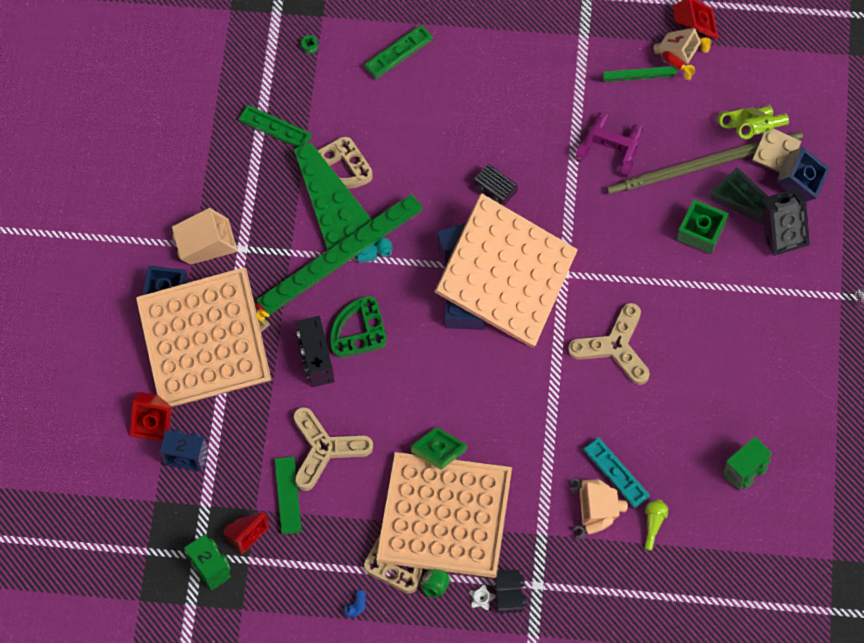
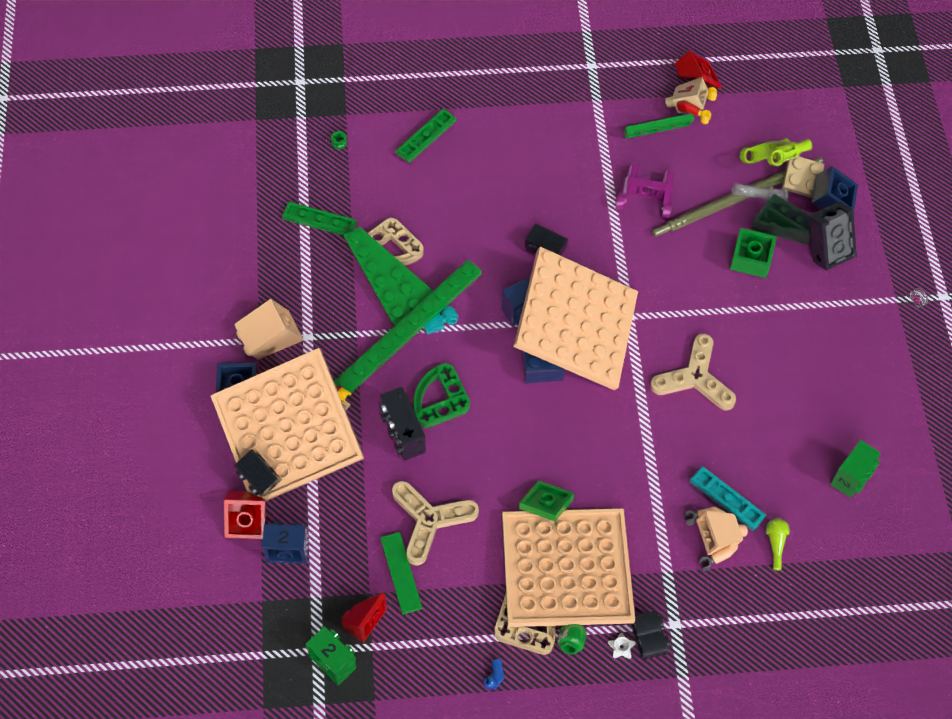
camera: 15 degrees left, 5 degrees down
(169, 379) = (257, 473): none -> black brick
(726, 162) = (759, 192): none -> clear pin

